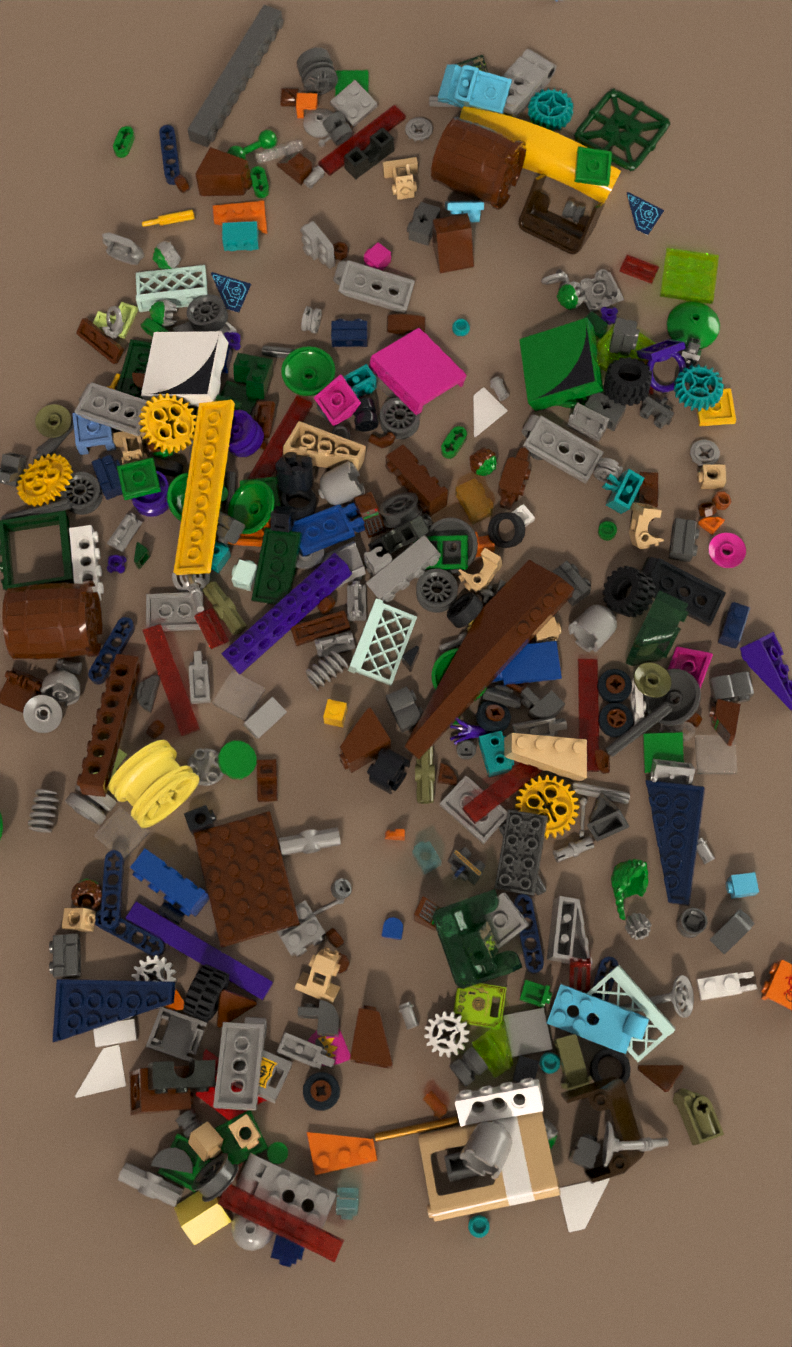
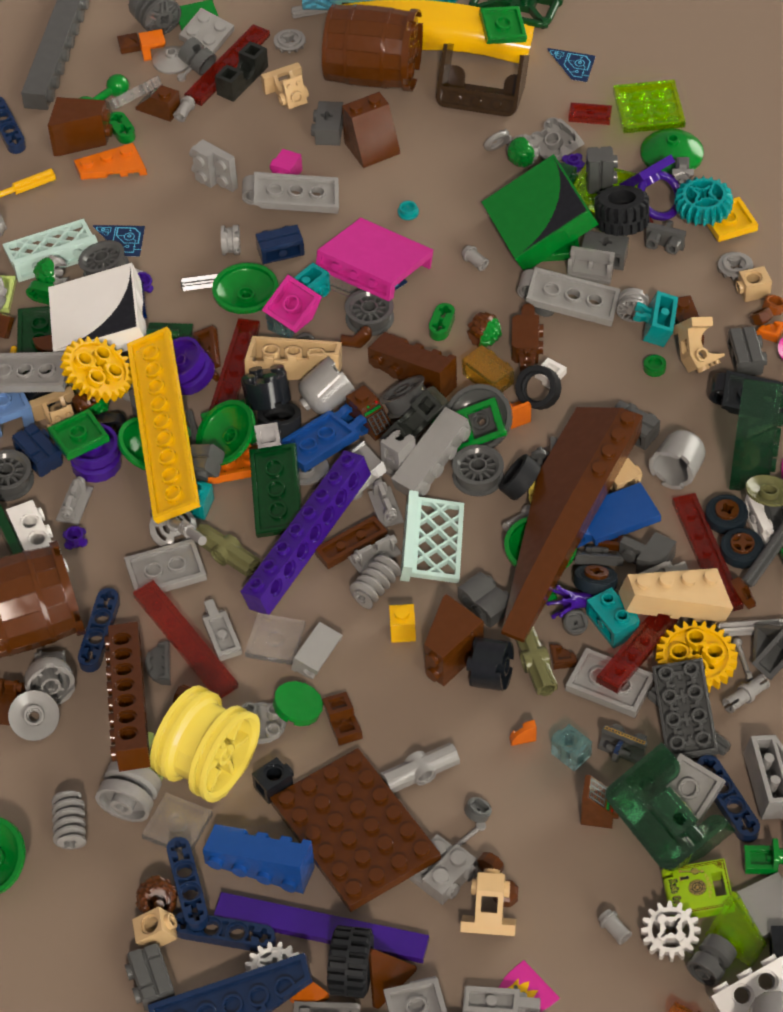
camera: 15 degrees left, 20 degrees down
(141, 555) = (105, 519): dark green slope -> none
(166, 255) = (35, 217): light grey piece -> none
(171, 913) = (271, 893): black pin -> none
(181, 183) = (30, 147): reddish brown tile -> none
(208, 629) = (217, 573): clear red tile -> none
(240, 236) = (118, 179): teal brick -> none
(244, 574) = (239, 509): light aqua brick -> none
(255, 372) = (179, 304): dark green brick -> none
(326, 605) = (350, 515): reddish brown tile -> none
(327, 1017) = (508, 951): dark grey brick -> none
(340, 250) = (242, 169): reddish brown tile -> none
(366, 415) = (329, 318): black wheel -> none
(369, 1040) = (581, 961): reddish brown slope -> none
(392, 929) = (558, 838): blue tile -> none
(404, 323) = (336, 222): reddish brown slope -> none
(410, 658) = (472, 544): black slope -> none
(473, 208) = (373, 83): medium azure hinge -> none
(486, 410) = (467, 284): white sticker -> none
(492, 564) = (532, 429): tan tile -> none
(573, 211) = (493, 75): dark grey wheel -> none
(617, 588) = (718, 415): black tyre -> none

